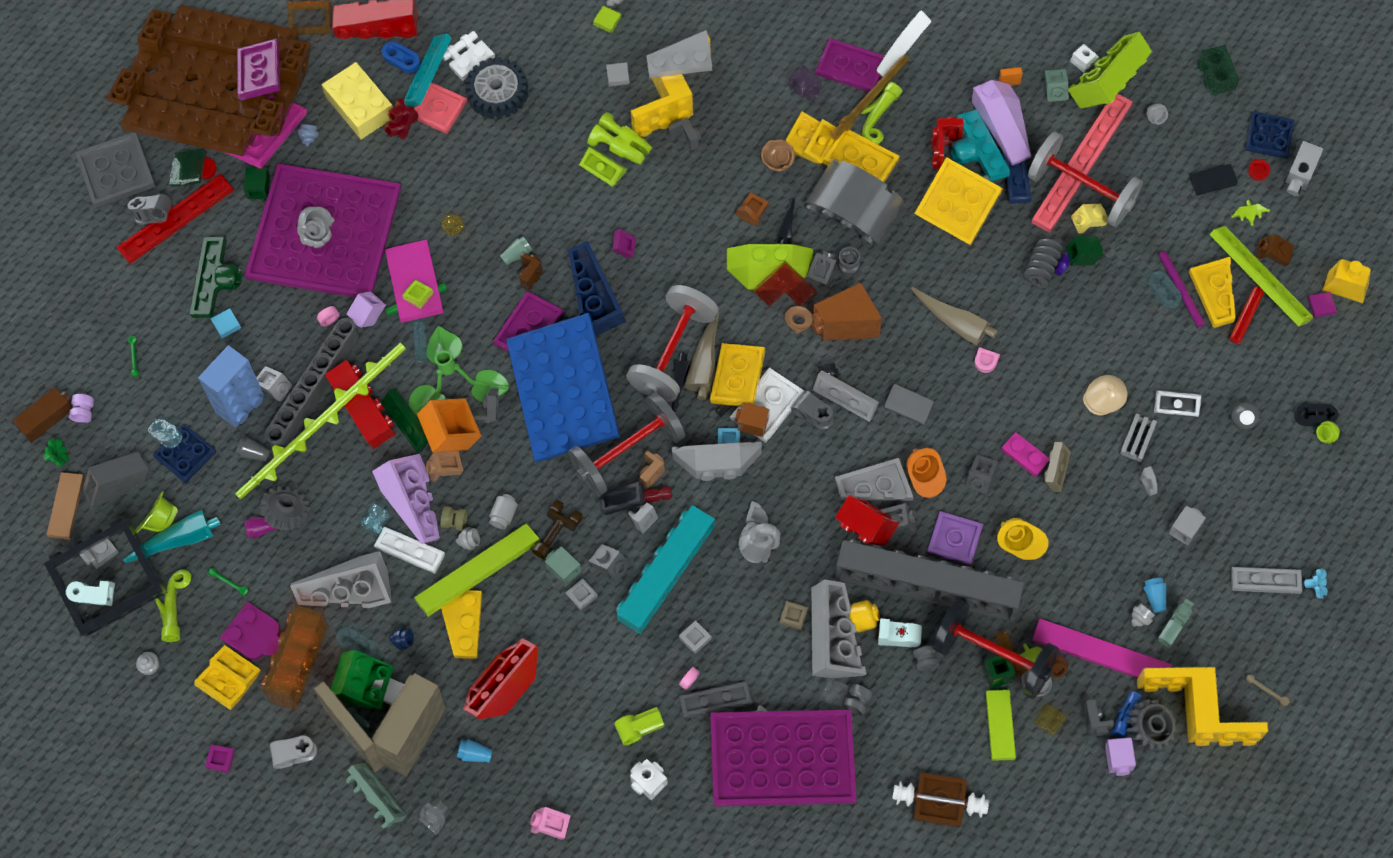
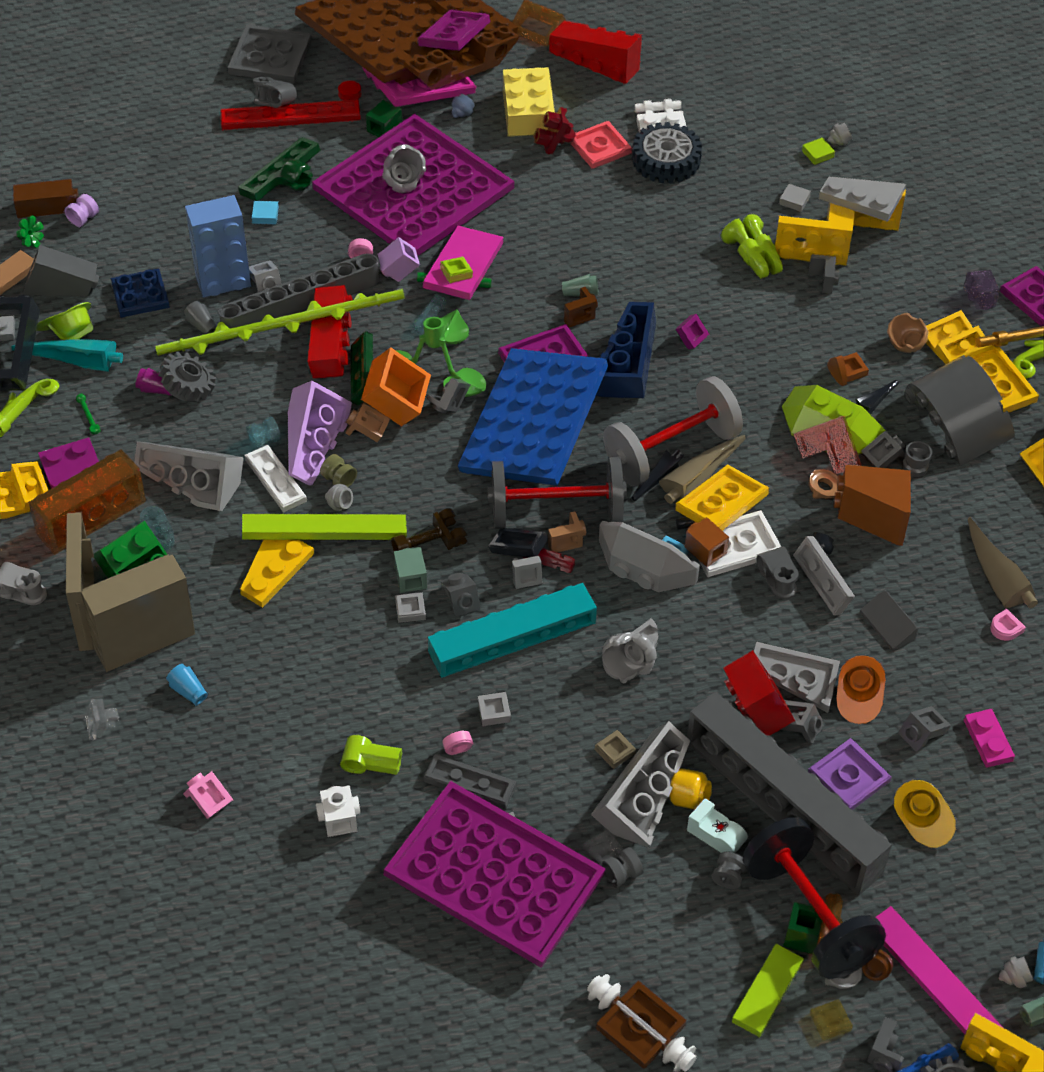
camera: 30 degrees right, 15 degrees down
(132, 341) = (171, 186): green hinge -> none
(165, 433) = (134, 264): clear light blue beam -> none
(187, 167) = (333, 81): clear green piece -> none
(376, 794) = (62, 667): sand green plate -> none
(402, 57) = (595, 89): blue plate -> none
(402, 638) = (204, 546): dark blue plate -> none
(427, 70) = (612, 109): teal tile -> none
(452, 224) = (537, 236): clear yellow plate -> none
(502, 511) = (390, 491): light grey brick -> none
(503, 681) = (267, 639): red wedge -> none
(602, 166) = (721, 262): lime slope -> none
(1057, 468) = (1017, 766): dark tan plate -> none

